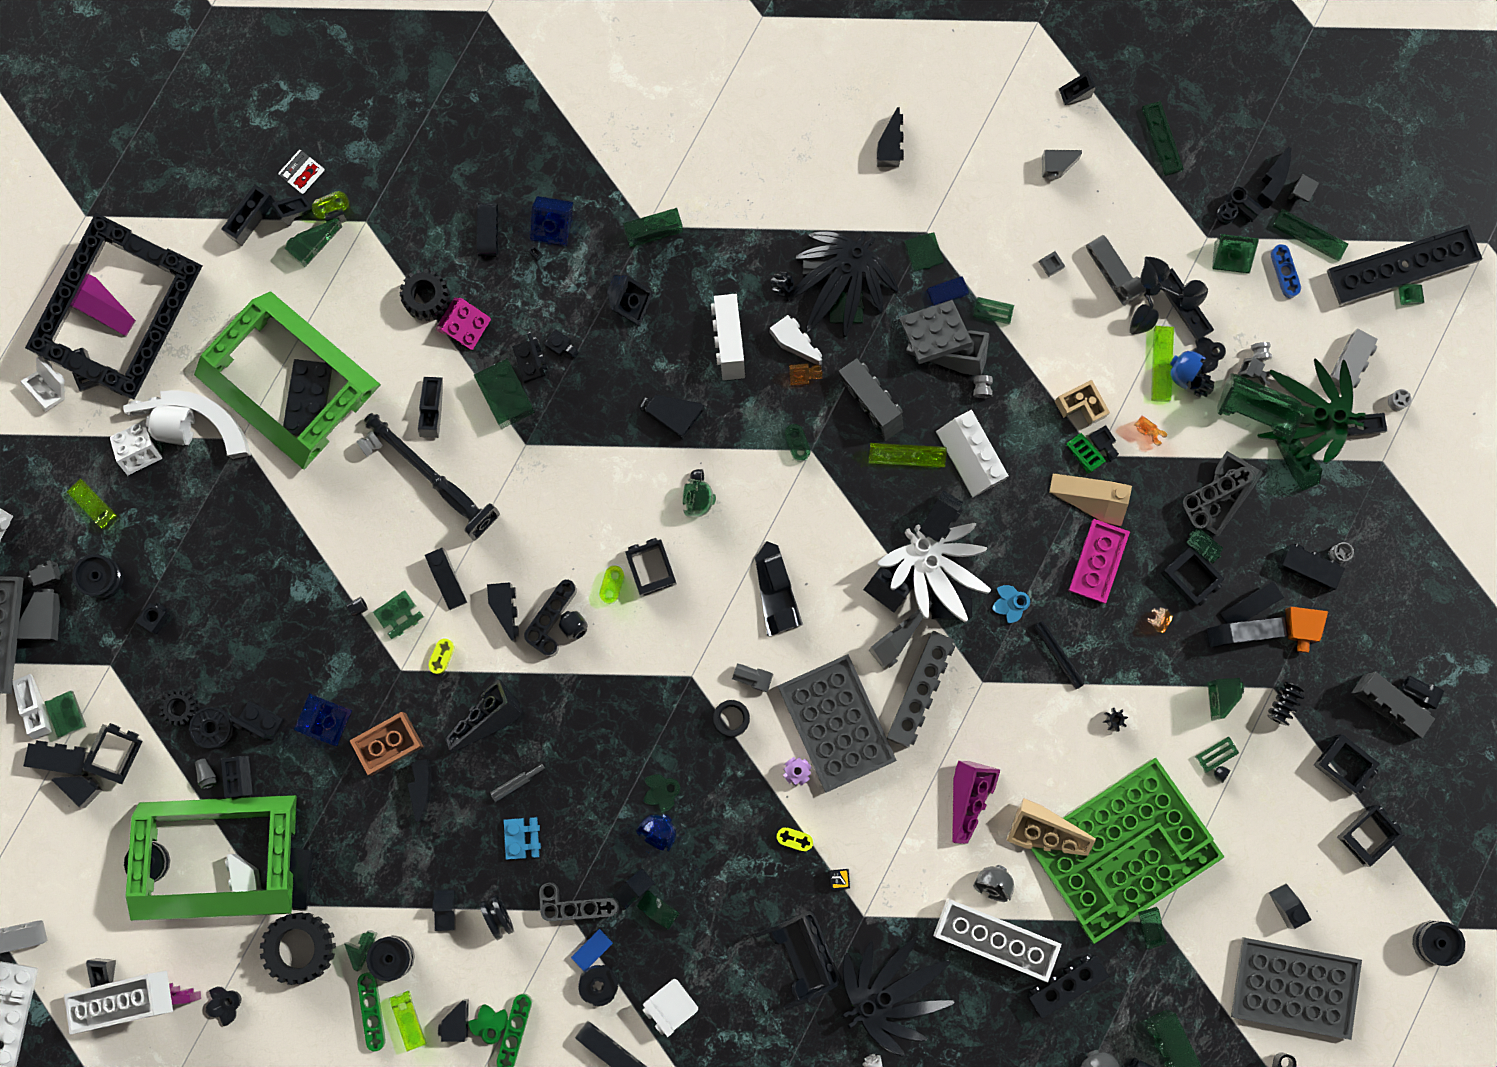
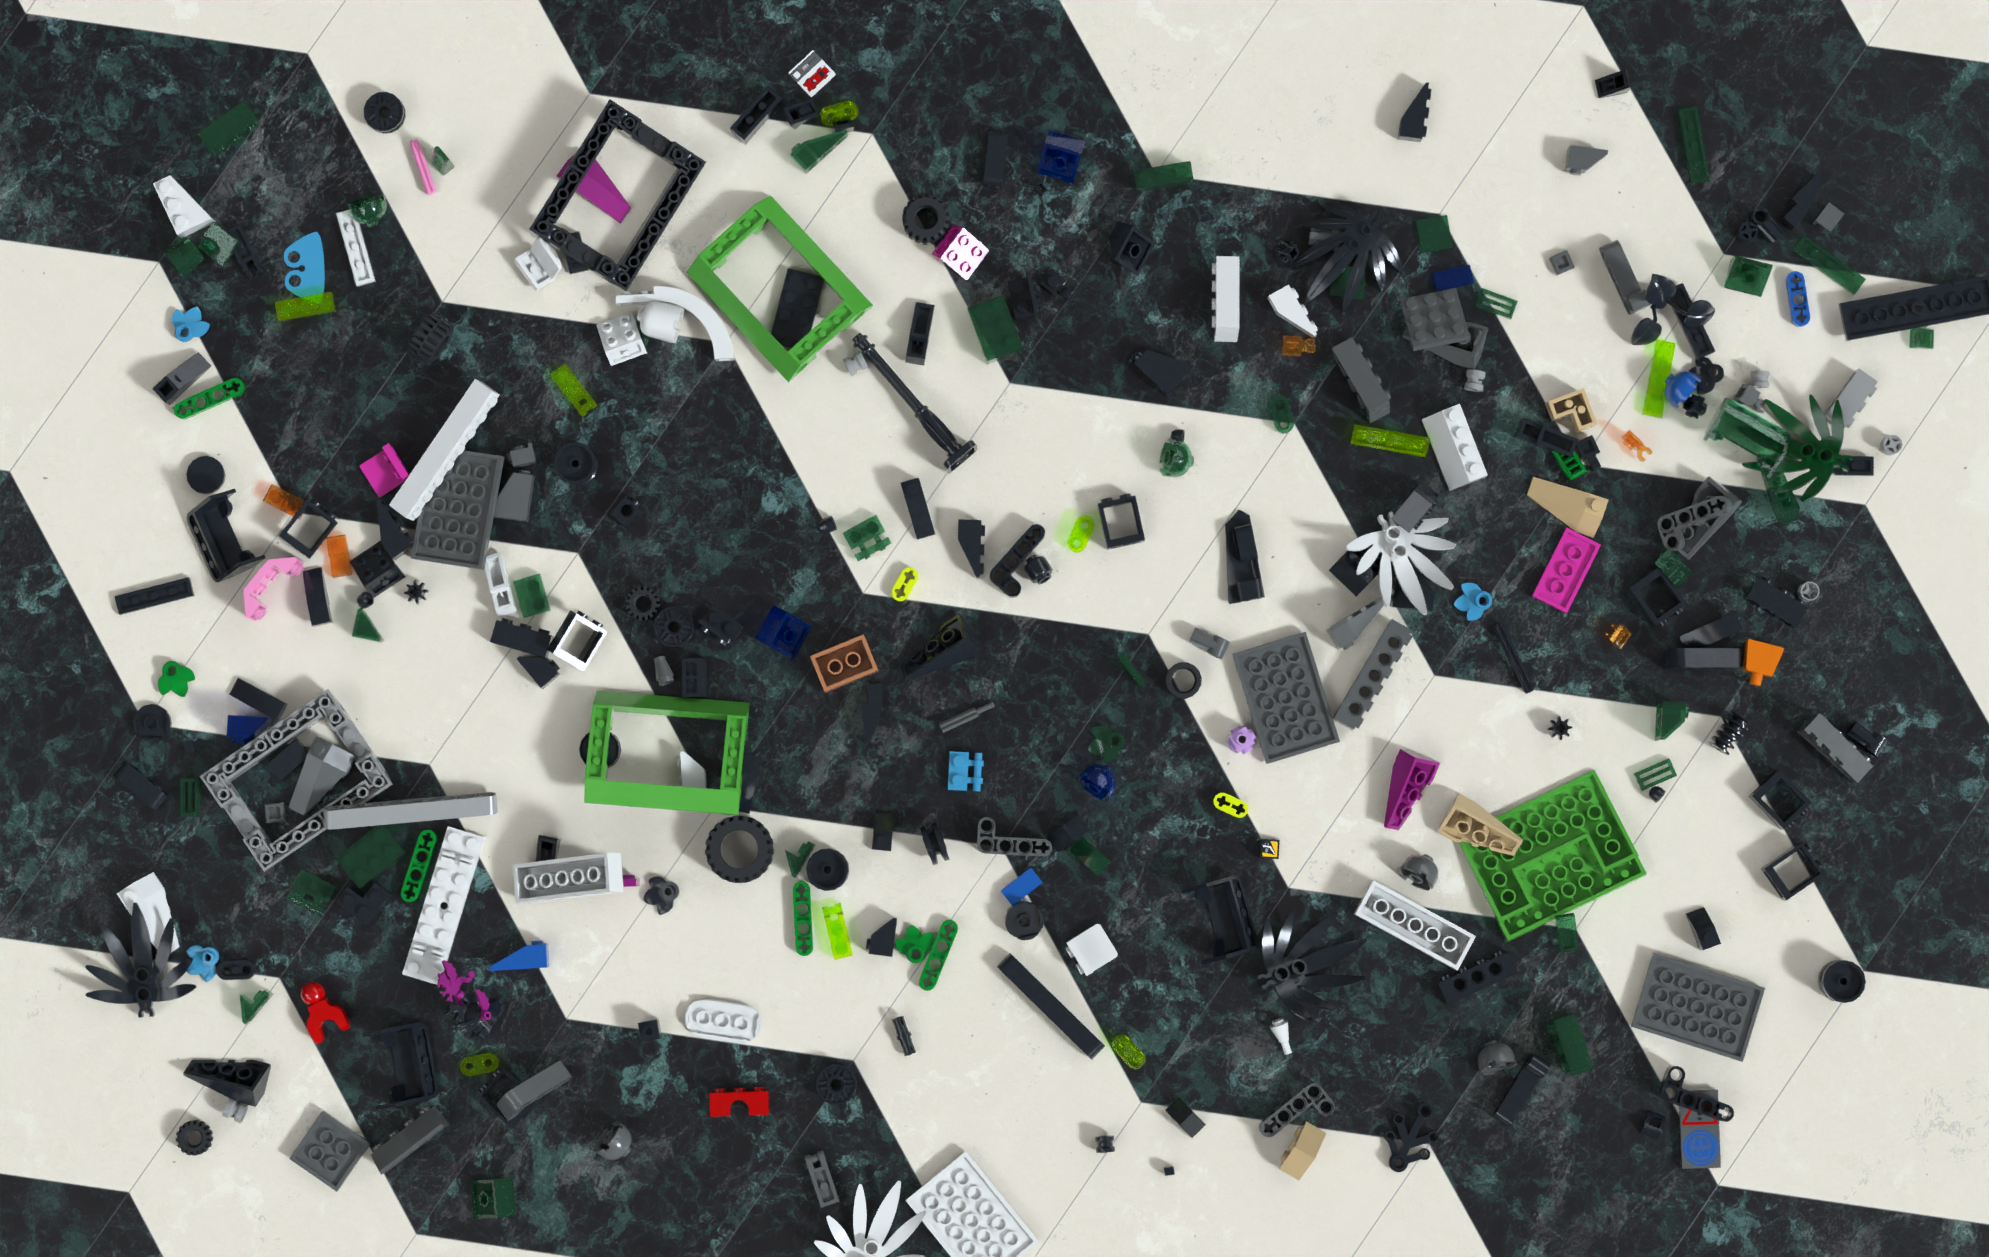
camera: 10 degrees right, 5 degrees up
(678, 714) = (1131, 670): none -> clear green tile
(1060, 433) = (1546, 437): none -> black slope

